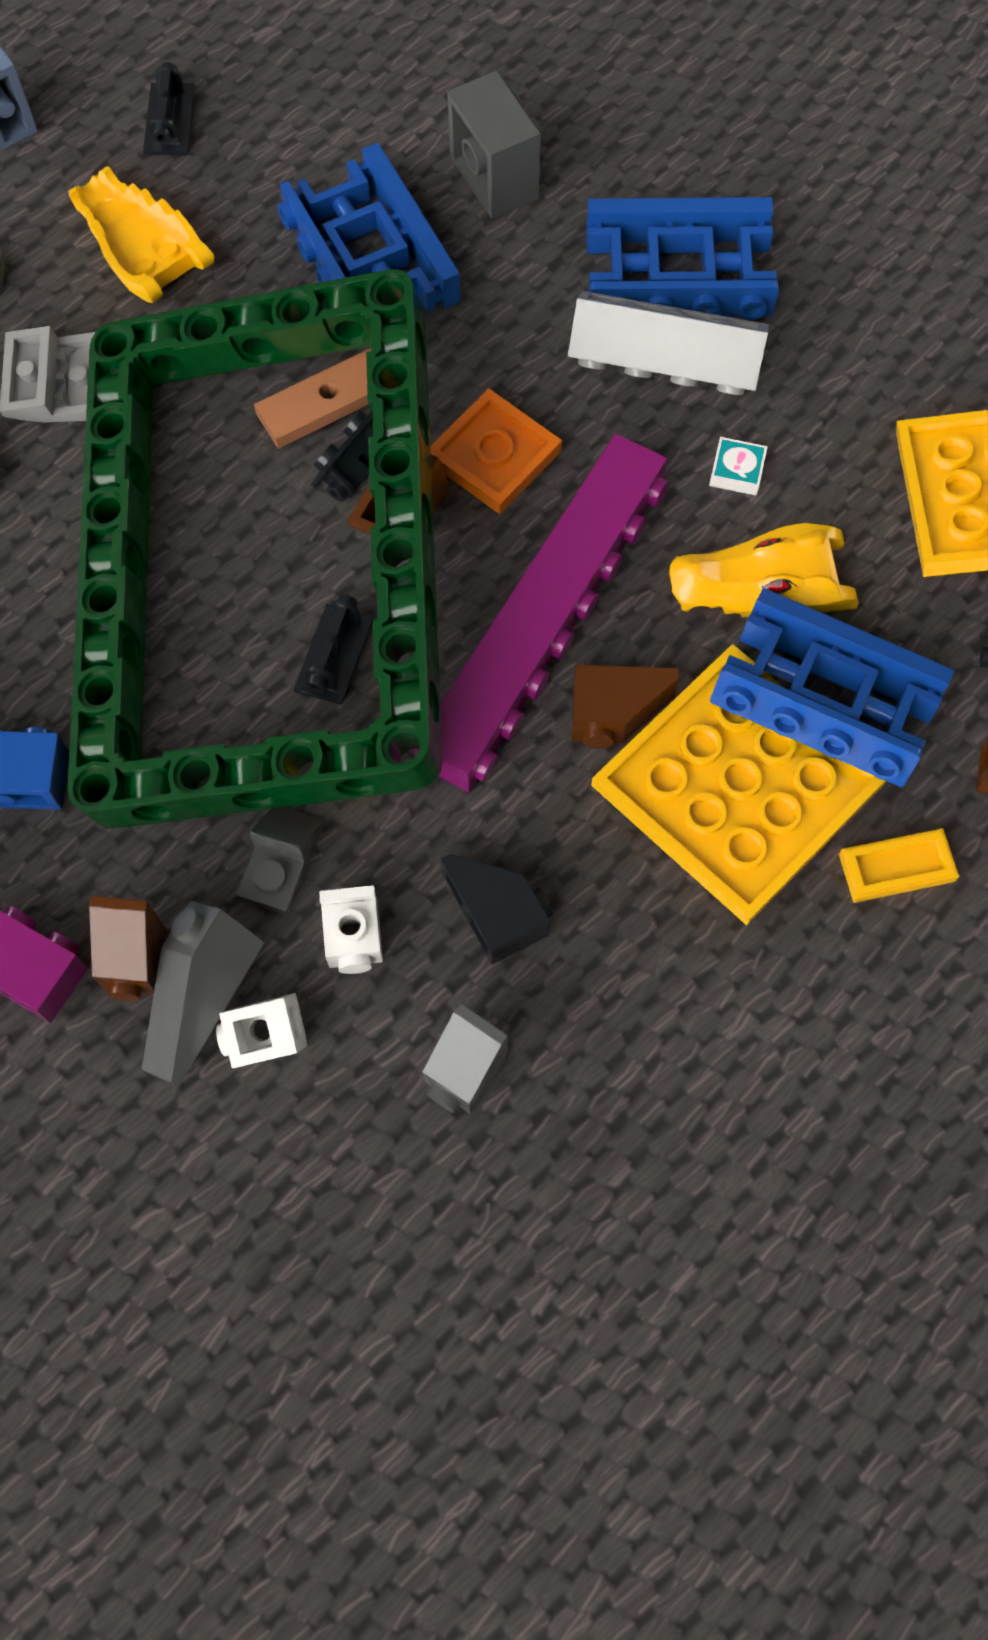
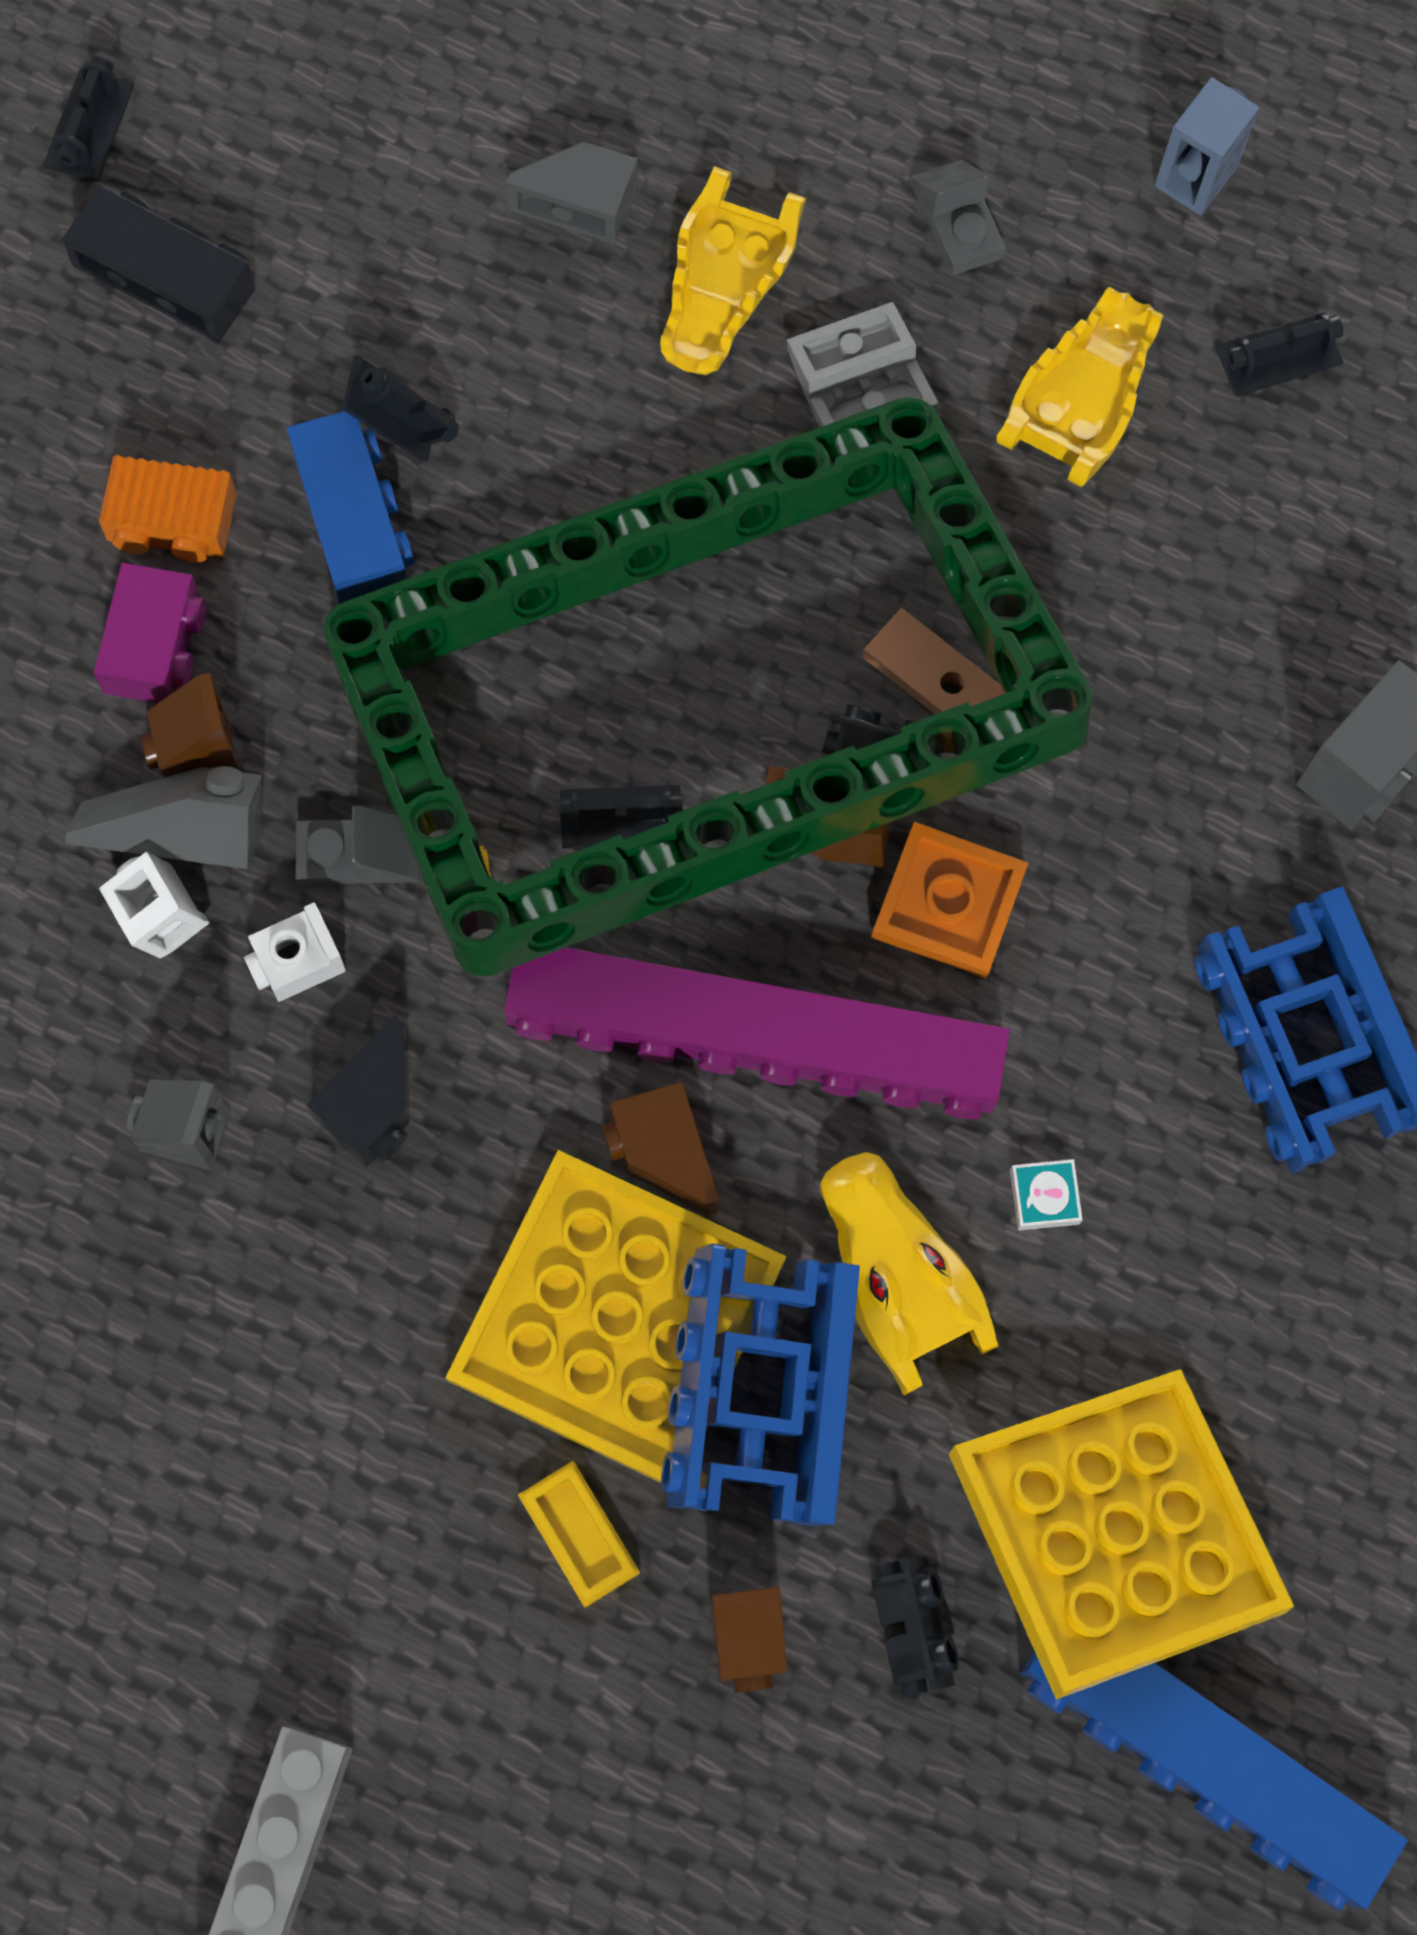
camera: 65 degrees right, 5 degrees up
(394, 217) = (1217, 680): blue fence -> none
(667, 342) = (1176, 1052): brick -> none

